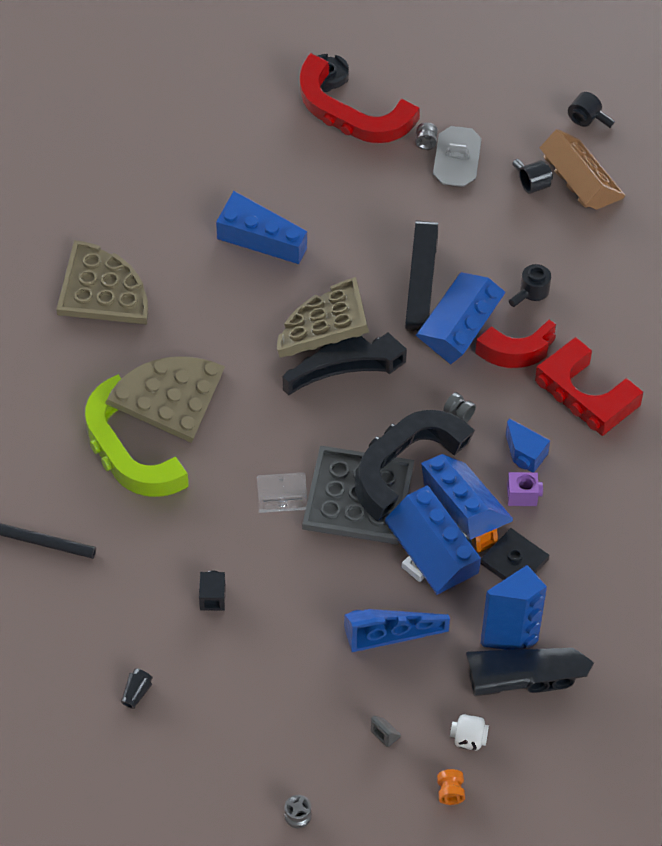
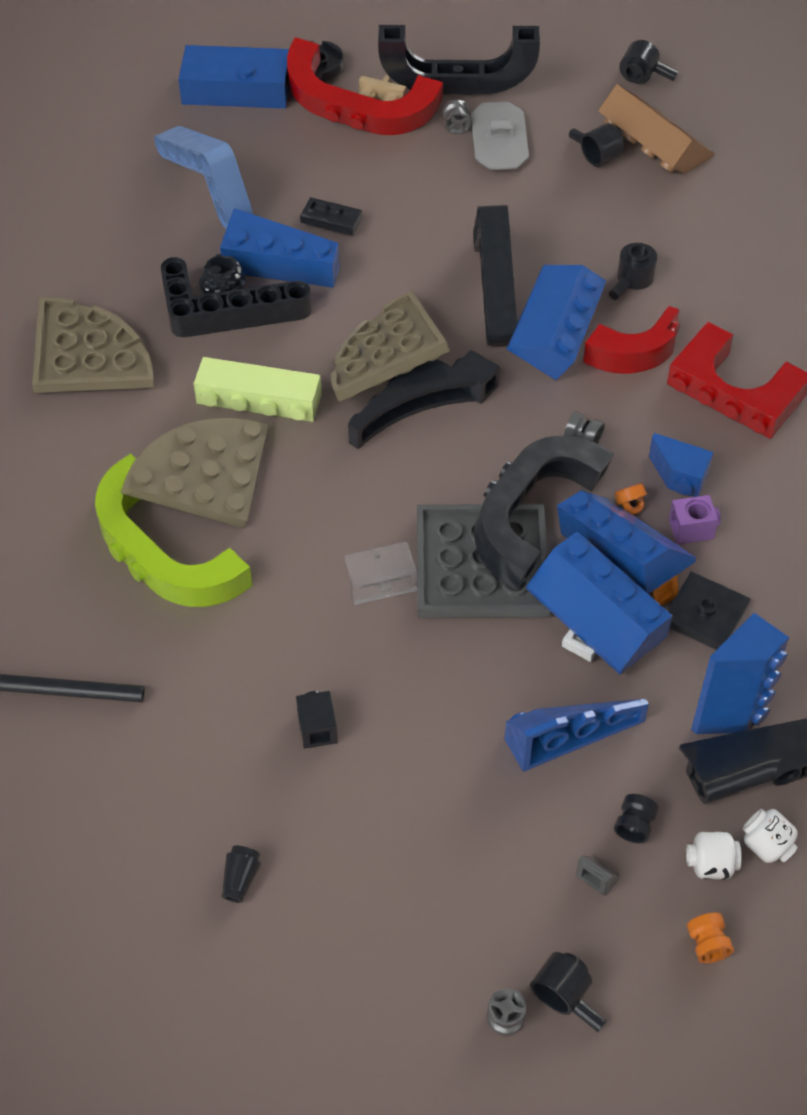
camera: 10 degrees left, 0 degrees up
(214, 245) = (222, 275): none -> black piece
(215, 271) = (229, 309): none -> black beam
(223, 150) = (214, 161): none -> medium blue beam
(223, 338) = (258, 389): none -> yellowish green brick
(258, 76) = (234, 76): none -> blue brick
(309, 206) = (331, 216): none -> black plate
(339, 800) = (563, 984): none -> black piece
(371, 105) = (381, 90): none -> tan hips
(422, 696) = (636, 817): none -> black wheel
(436, 100) = (460, 75): none -> black arch
(476, 463) = (630, 493): none -> orange tile
(513, 725) = (770, 836): none -> white head

